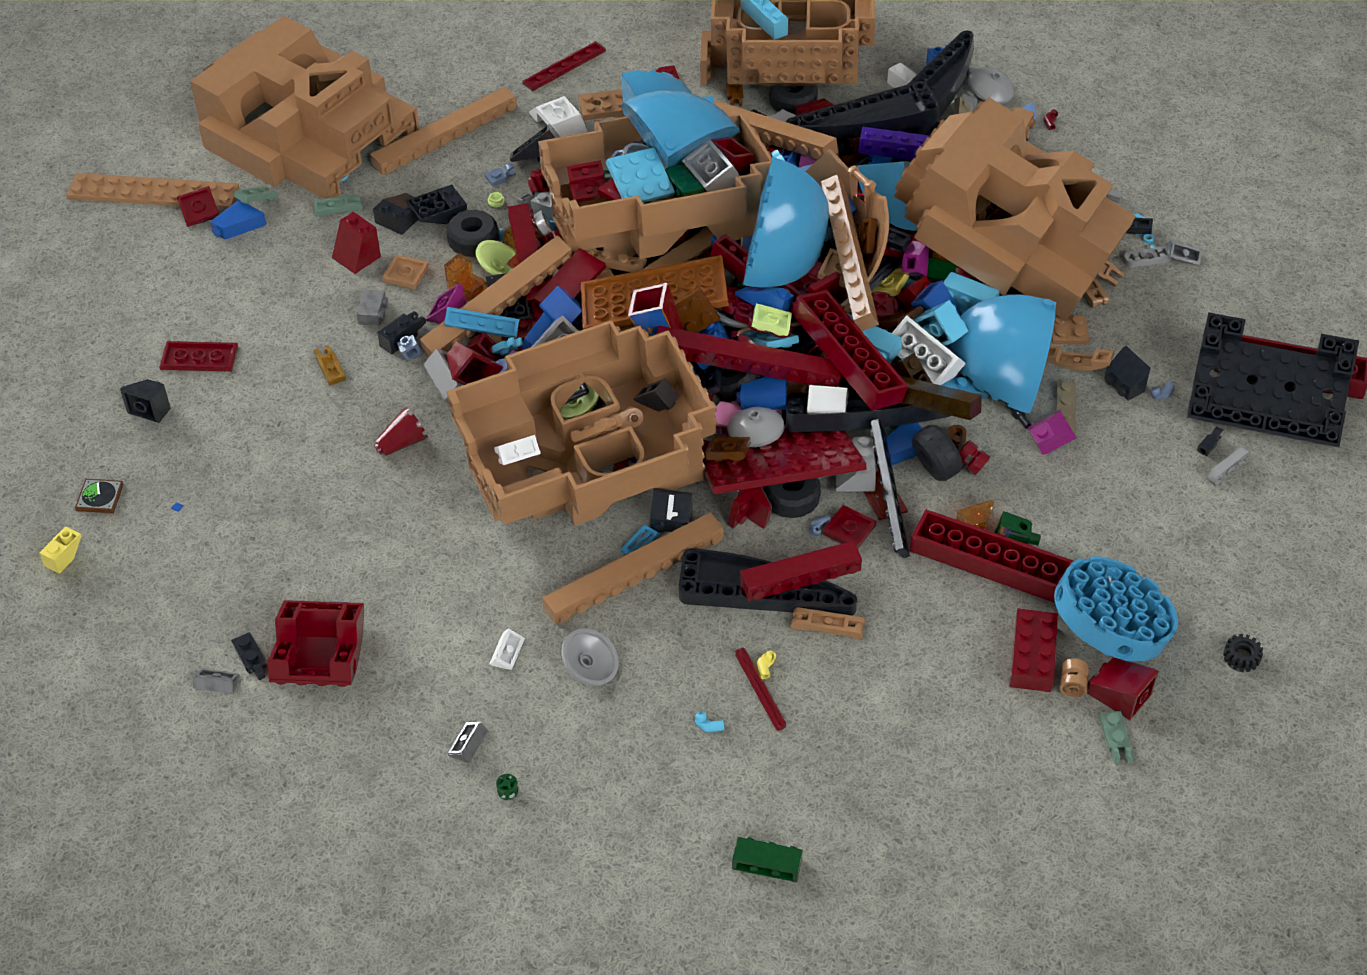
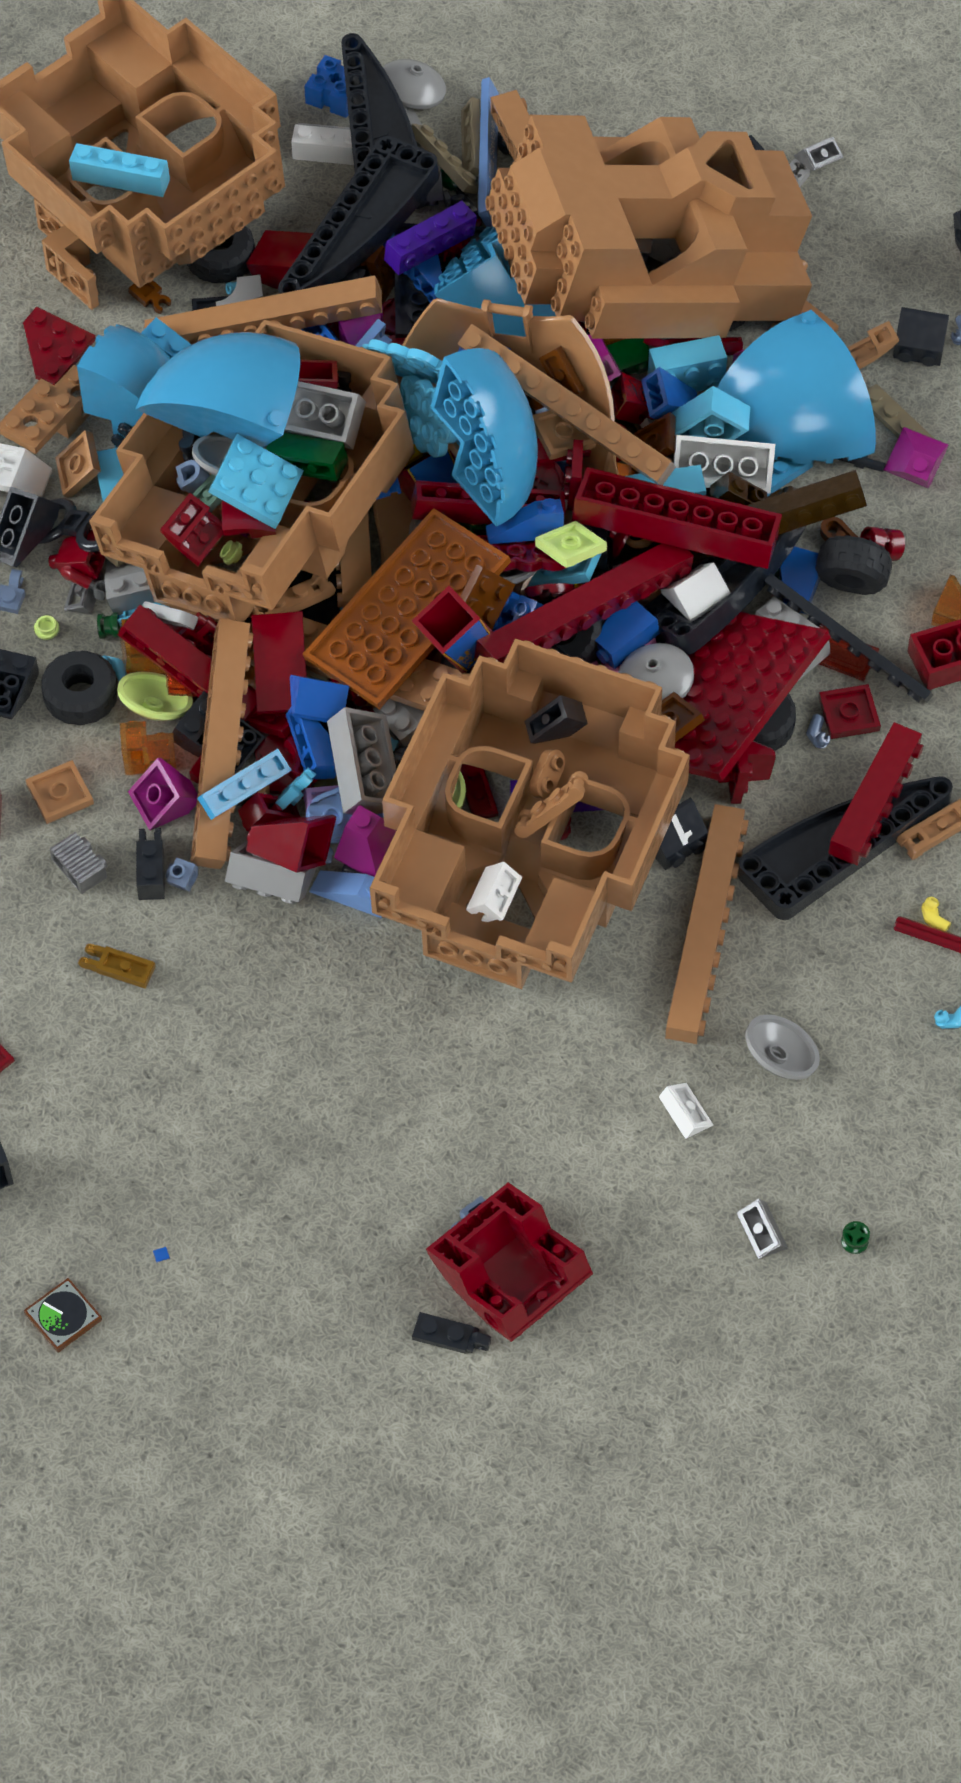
camera: 45 degrees left, 10 degrees up
(61, 550) = (113, 1402): light yellow slope -> none
(215, 681) = (449, 1388): flat silver slope -> none
(400, 433) = (303, 976): dark red cone -> none
(625, 549) = (677, 910): dark azure tile -> none
(1049, 119) = (513, 83): dark red arm -> none

